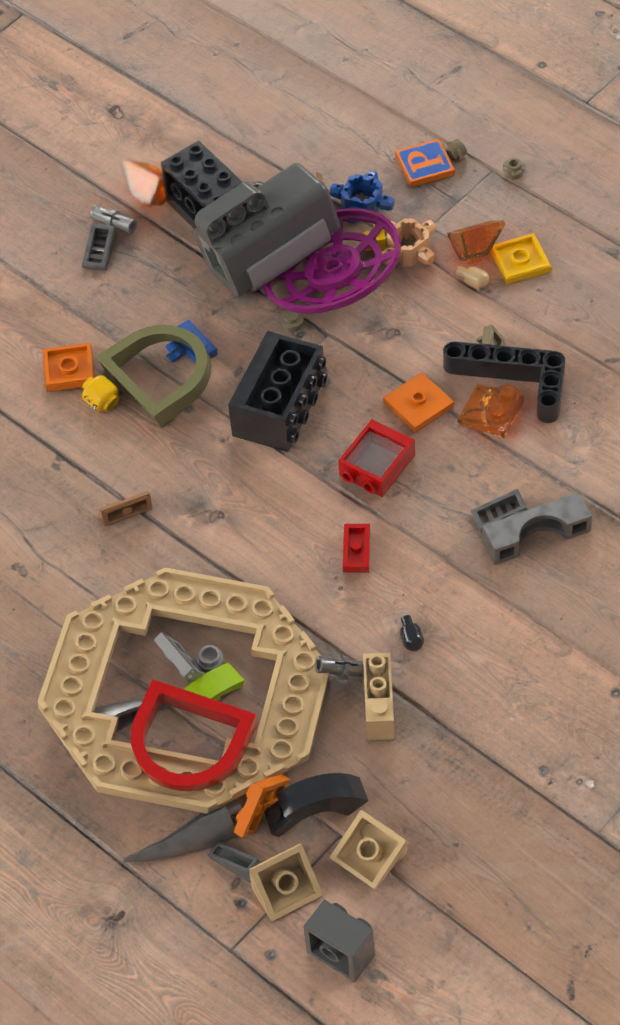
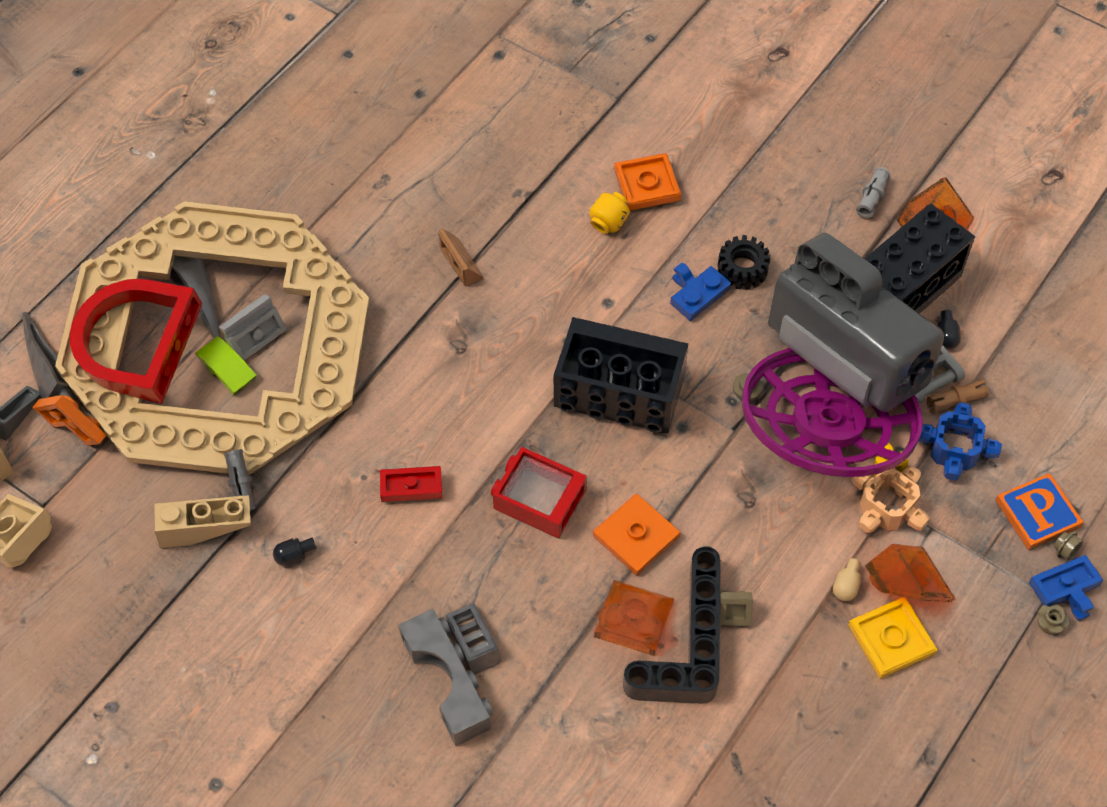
camera: 80 degrees right, 5 degrees up
(101, 231) = (837, 194): flat silver slope -> none
(165, 299) = (744, 249): none -> black tyre
(180, 399) = (603, 253): olive window -> none
(209, 658) = (263, 358): light grey plate -> none
(315, 795) = (69, 474): black arch -> none
(488, 156) = (1068, 583): none -> blue plate

